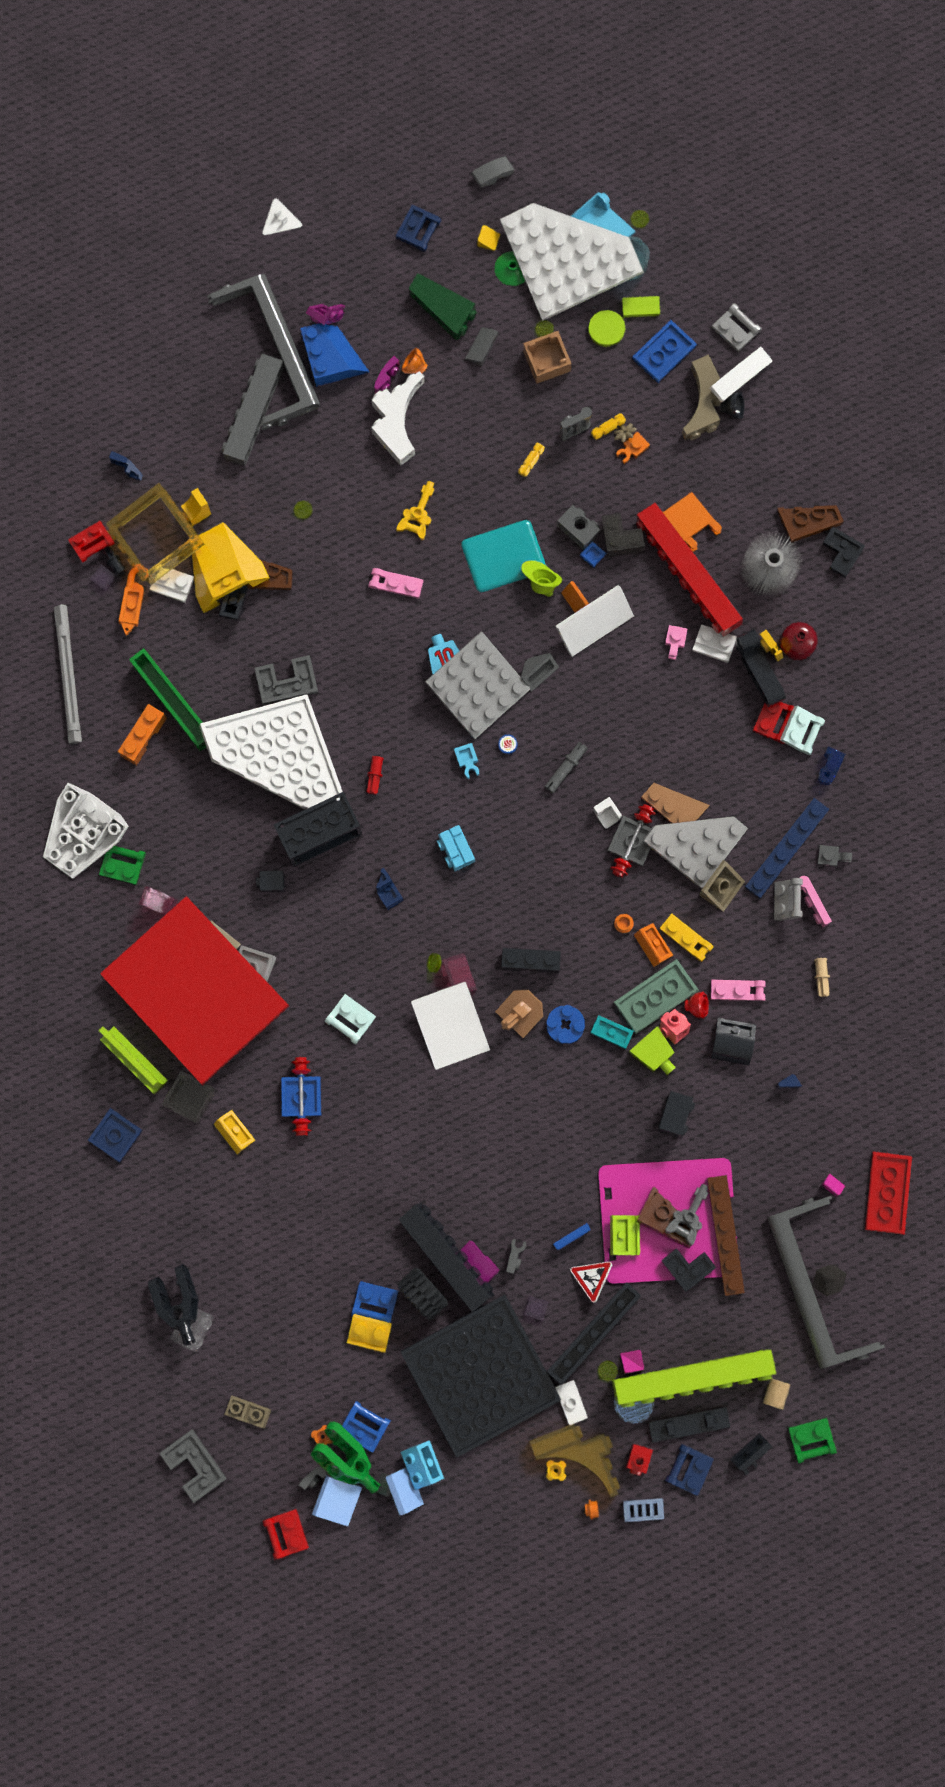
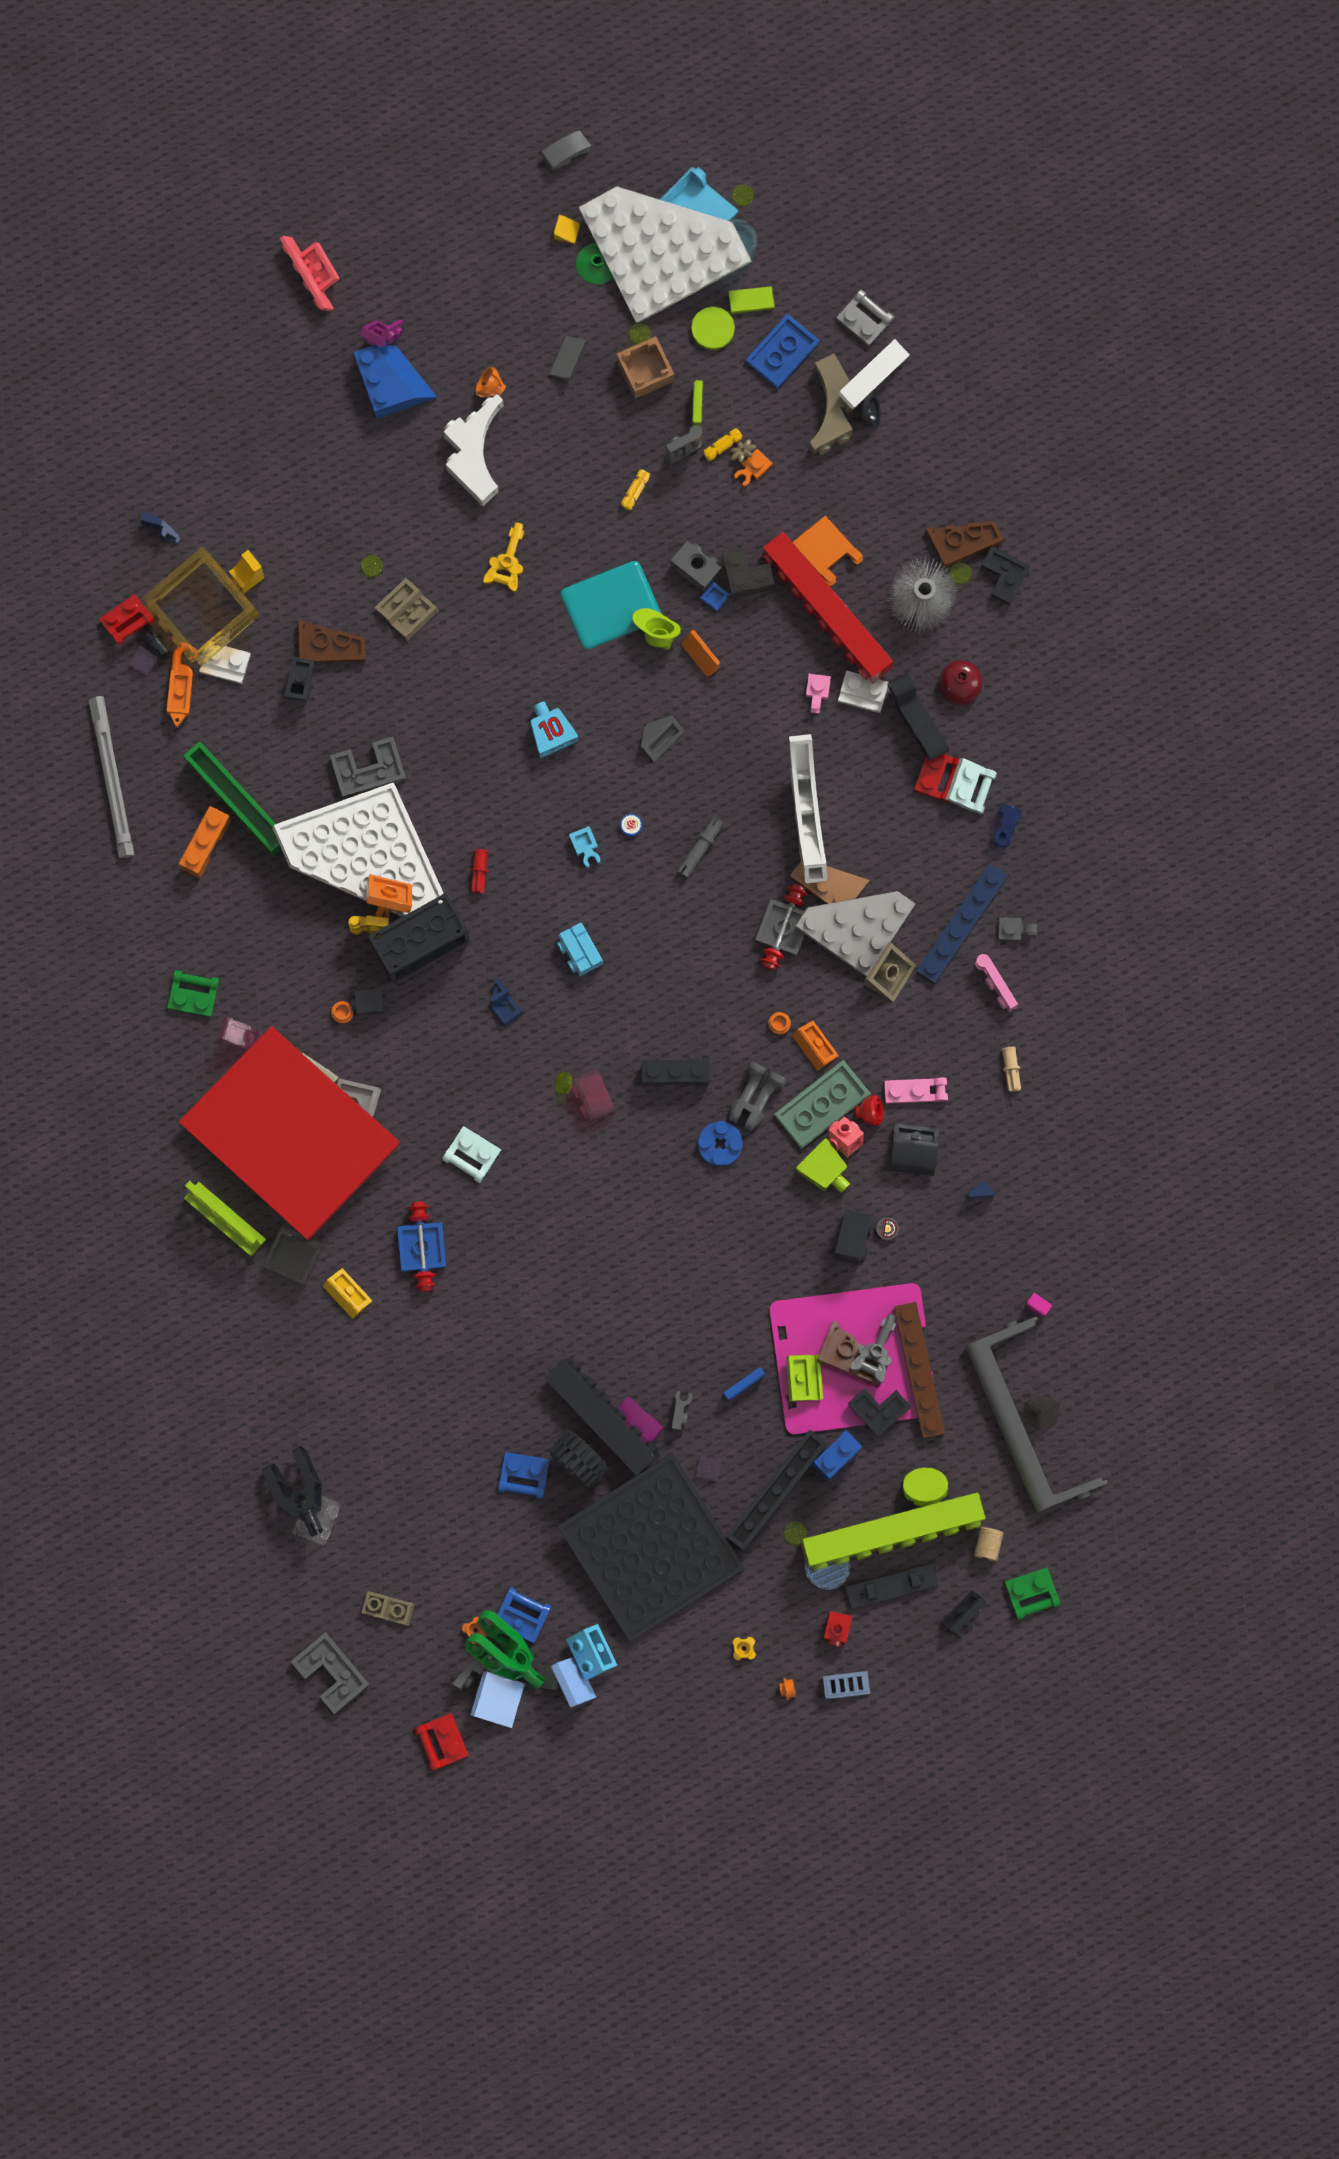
camera: 10 degrees left, 0 degrees up
(81, 830) = (143, 959): white wedge -> none
(115, 1135) = (210, 1306): dark blue plate -> none
(223, 566) = (284, 639): yellow wedge -> none
(248, 888) = (342, 1012): none -> orange plate
(253, 409) = (304, 451): dark grey brick -> none
(273, 257) = (314, 269): none -> coral bracket
(276, 814) = (368, 924): none -> yellow plate
(280, 219) = (318, 222): white piece -> none
(283, 340) = (335, 370): dark grey piece -> none
(294, 790) = (388, 895): none -> orange tile
(325, 541) = (406, 609): none -> dark tan slope
(369, 1333) = (520, 1509): yellow plate -> none
(390, 369) = (455, 406): magenta slope -> none
(396, 583) = (487, 645): bright pink plate -> none
(413, 224) = (476, 219): dark blue plate -> none
(443, 305) = (519, 313): dark green slope -> none
(450, 1025) = (587, 1153): white sticker -> none
(477, 685) = (591, 758): light grey plate -> none
(520, 1012) = (668, 1132): medium nougat piece -> none
(571, 1402) = (756, 1571): white plate -> none
(589, 388) = (697, 403): none -> lime tile
(590, 1452) = (755, 1618): clear yellow arch -> none
(592, 1278) = (770, 1429): piece -> none
(594, 620) = (722, 674): white tile -> none
(601, 966) = (772, 1082): none -> dark grey piece
(607, 813) = (752, 897): white panel -> none
(612, 1032) = (774, 1148): teal plate -> none
(632, 1361) = (822, 1520): dark pink slope -> none
(648, 1307) = (836, 1456): none -> blue brick
(660, 740) = (806, 809): none -> white arch
(686, 937) = (852, 1034): yellow plate -> none
(695, 1473) = (902, 1640): dark blue plate -> none
(705, 1109) = (887, 1229): none -> tile
(724, 1339) = (925, 1486): none -> lime tile
(769, 644) = (926, 689): yellow plate -> none
(788, 899) = (966, 982): light grey plate -> none
(806, 547) = (961, 572): none -> clear neon green piece
(888, 1193) = (1102, 1309): red tile -> none

